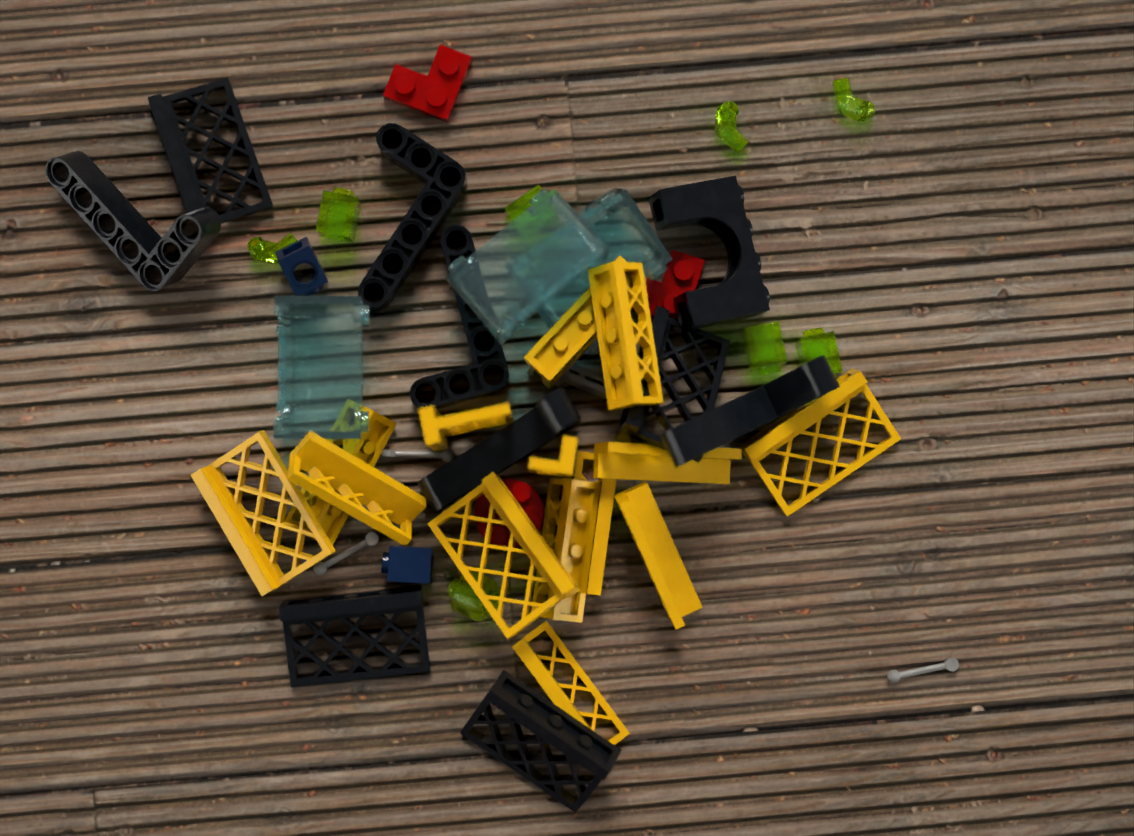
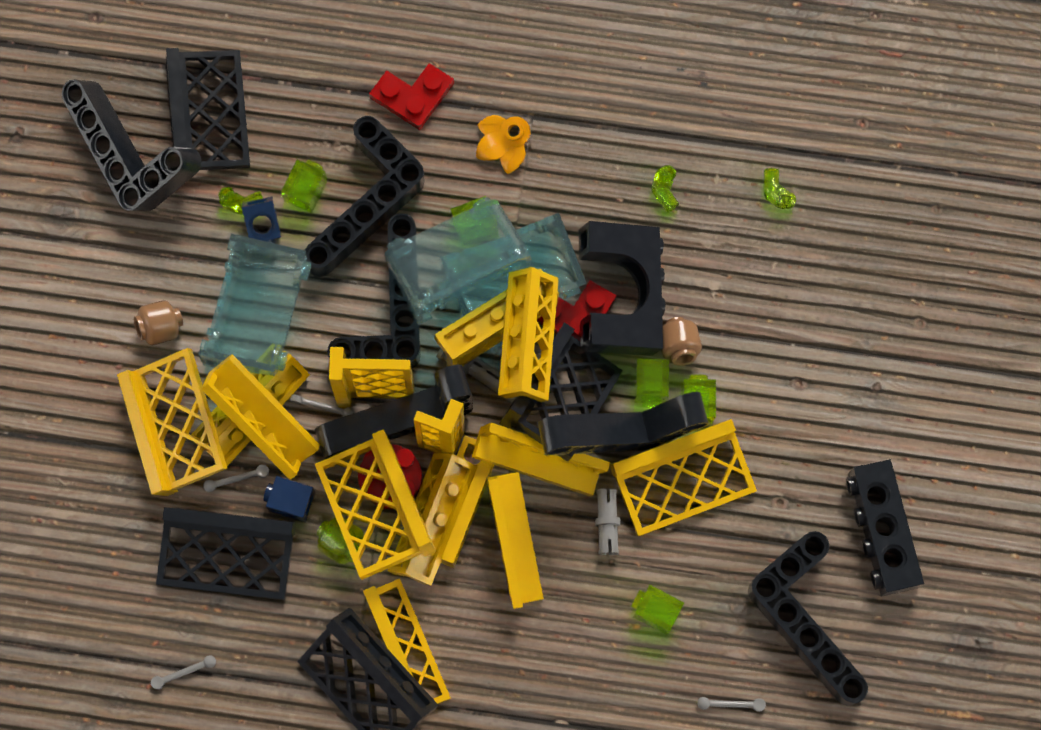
camera: 15 degrees right, 10 degrees down
(219, 406) = (158, 322): none -> medium nougat head
(320, 787) = (158, 682): none -> light grey hinge
(538, 118) = (500, 144): none -> light orange plate
(751, 509) = (607, 521): none -> light grey pin
(786, 295) = (681, 341): none -> medium nougat head
(824, 591) = (656, 609): none -> clear neon green brick
(978, 568) = (803, 621): none -> black beam
(1078, 489) = (882, 479): none -> black brick

